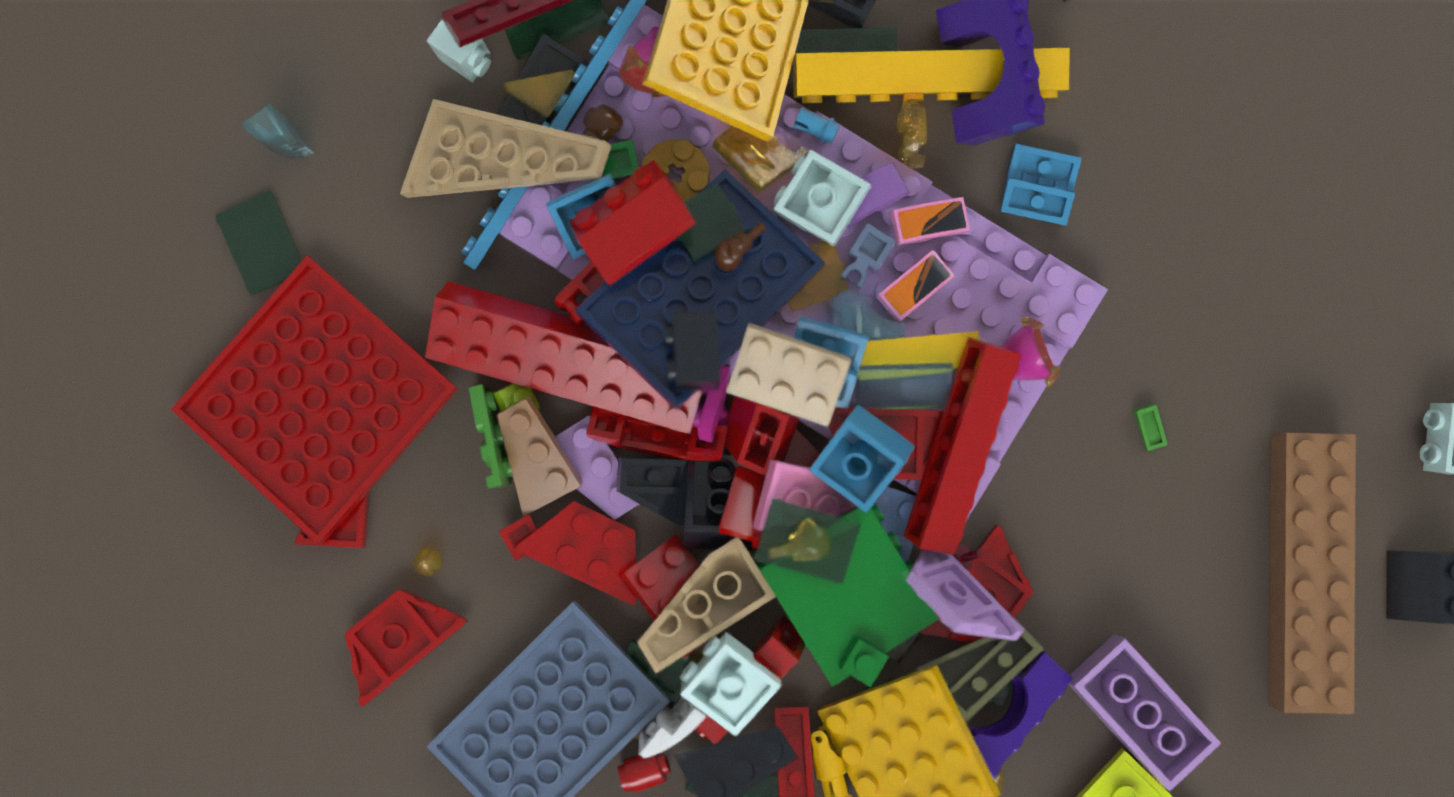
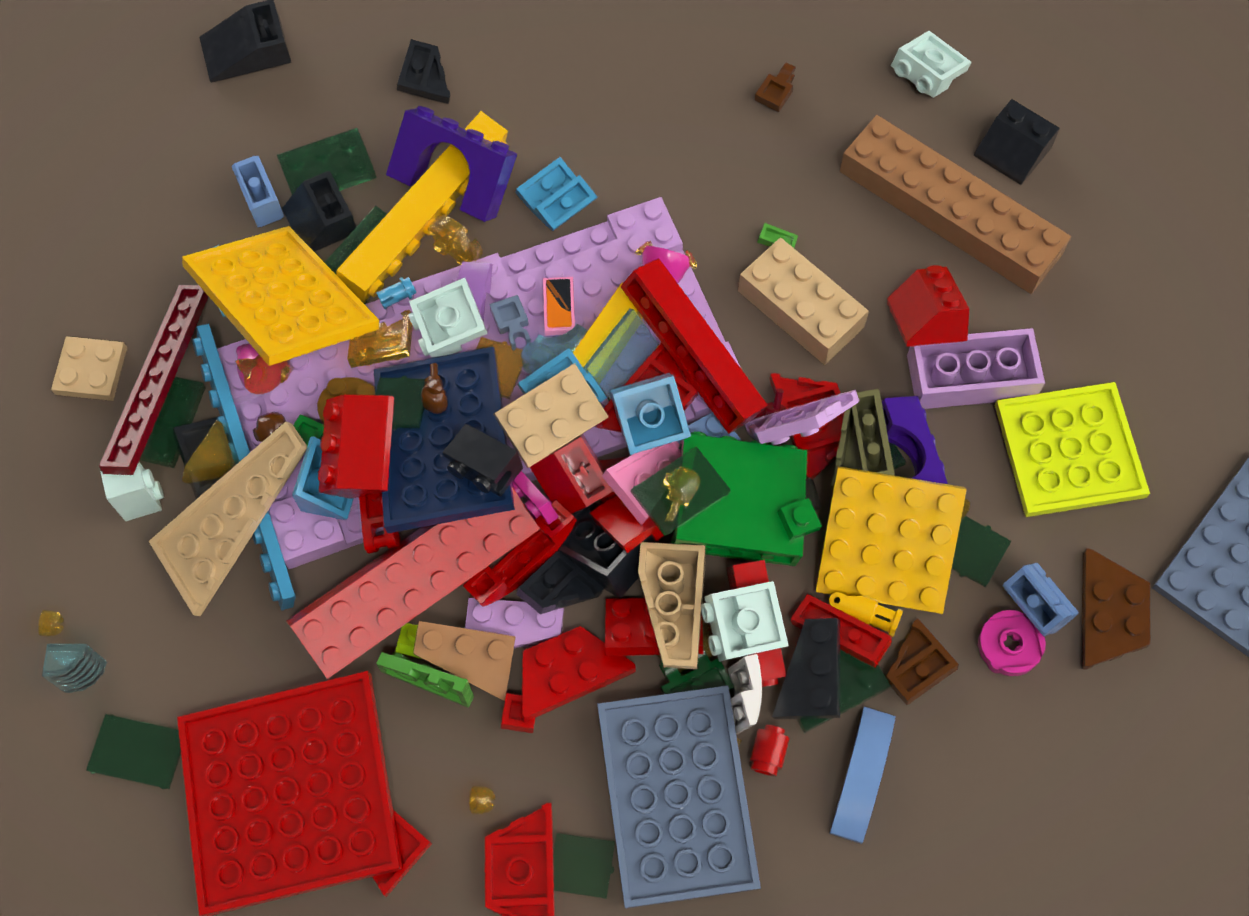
camera: 50 degrees left, 20 degrees down
(305, 78) = (48, 623): none -> clear yellow hinge
(439, 682) = (582, 865): none -> clear green piece
(930, 221) = (522, 266): slope -> none
(1097, 501) = (802, 301): none -> tan brick
(1171, 631) = (930, 308): none -> red slope
(1317, 310) = (776, 90): none -> reddish brown plate

